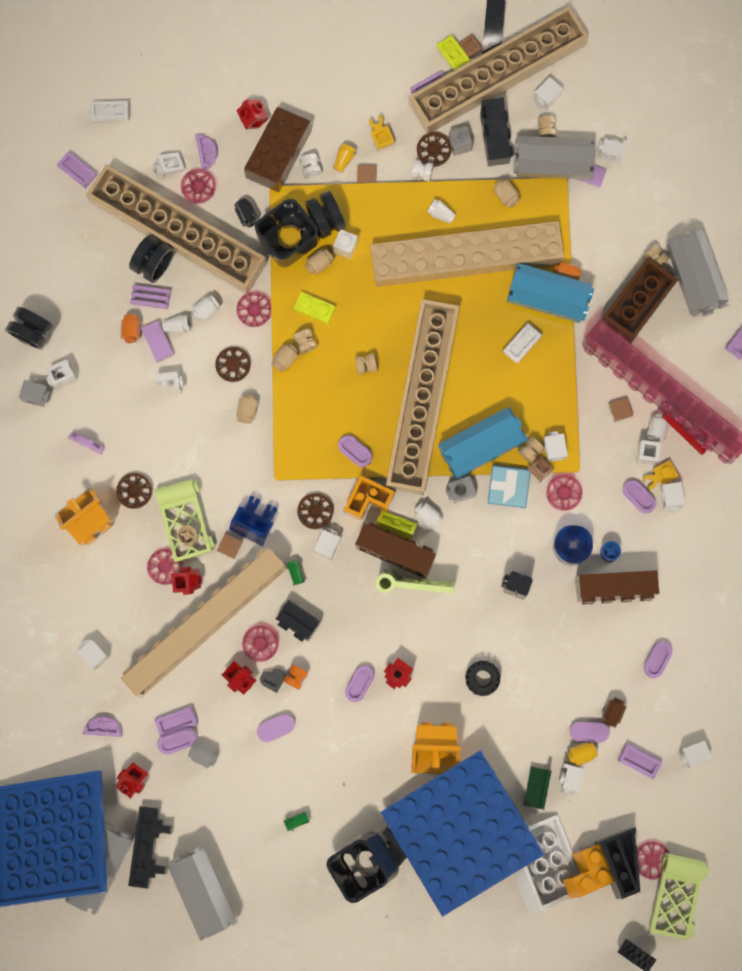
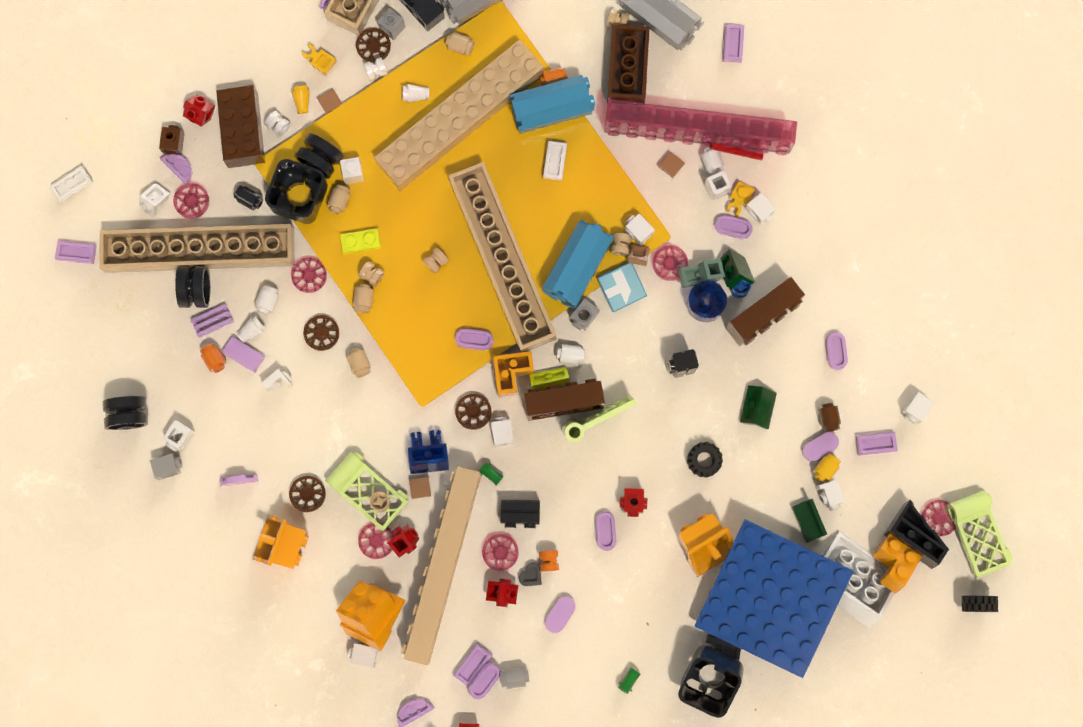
camera: 40 degrees left, 0 degrees up
(118, 623) = (369, 614): none -> light orange piece
(214, 125) = (171, 140): none -> reddish brown brick
(558, 663) = (758, 406): none -> dark green panel
(587, 518) = (706, 270): none -> sand green brick
(615, 533) = (735, 269): none -> dark green panel

